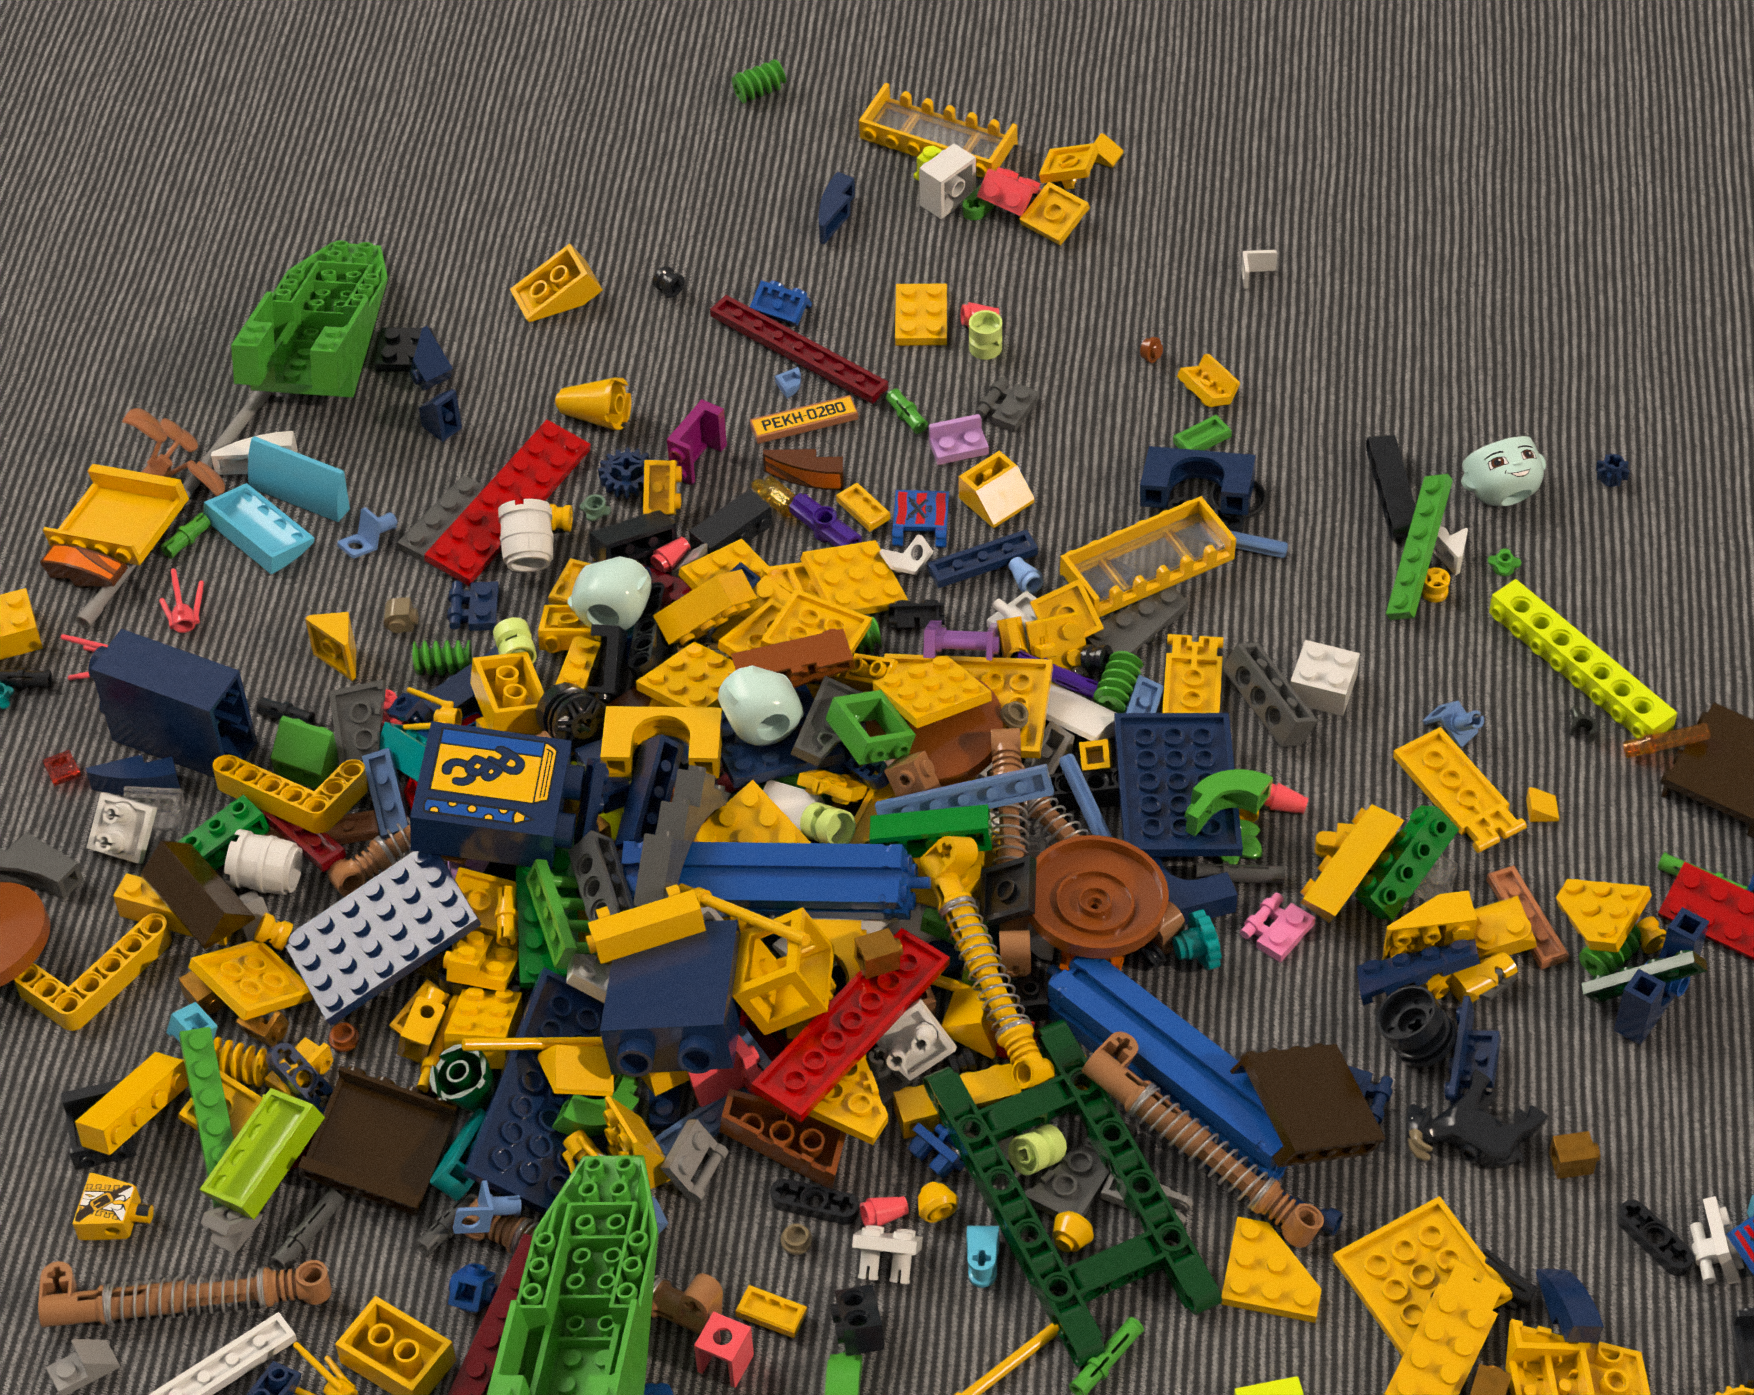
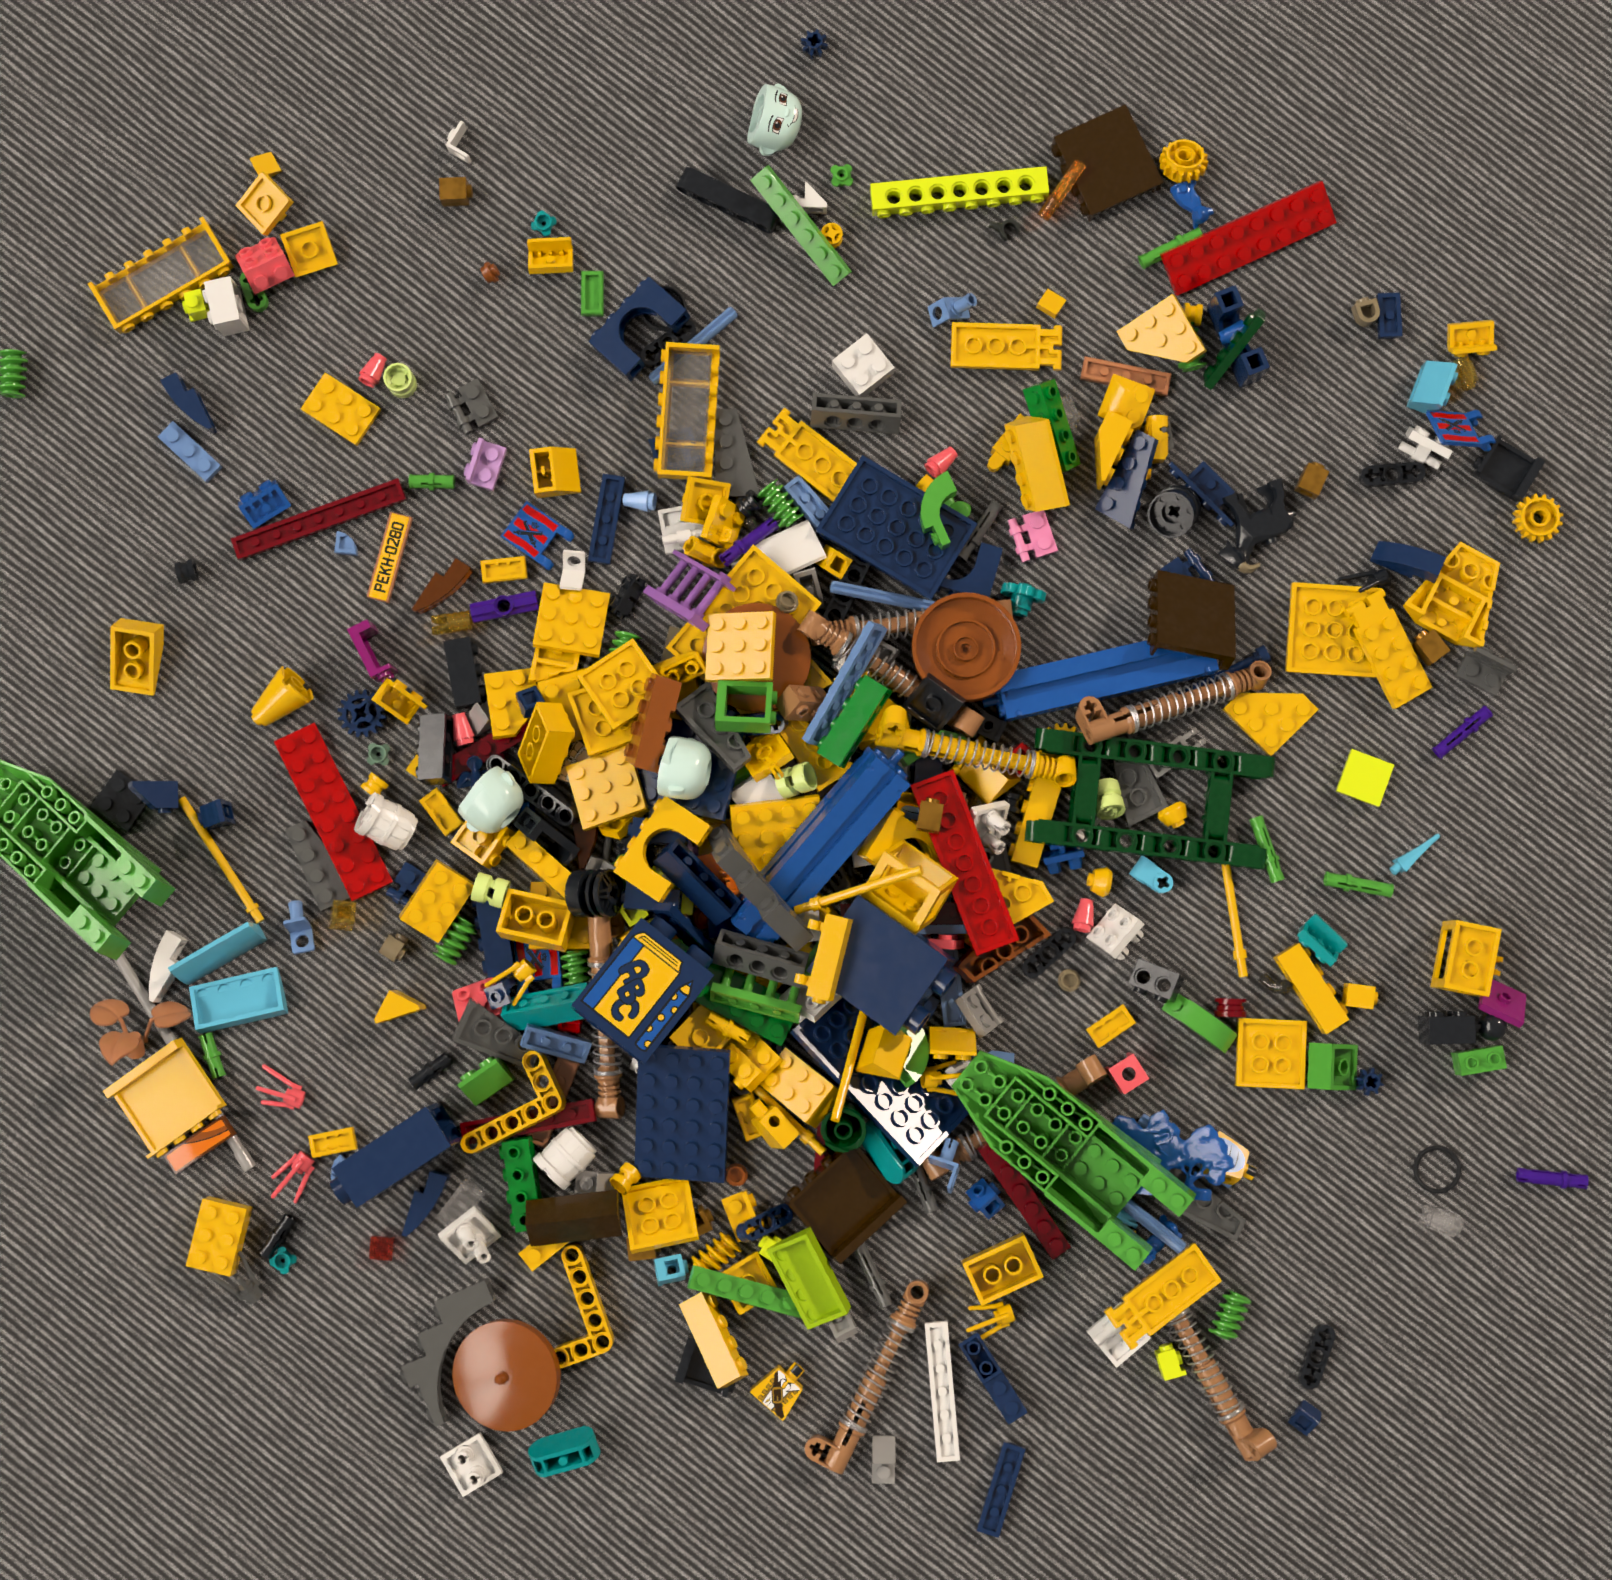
camera: 55 degrees left, 35 degrees up
(363, 490) = (252, 908): none -> yellow bar
(404, 555) = (342, 915): none -> clear yellow brick
(470, 612) = (437, 901): none -> yellow brick
(787, 233) = (190, 451): none -> medium blue plate
(1205, 285) = (455, 191): none -> pearl gold brick
(1237, 364) = (543, 217): none -> teal plate

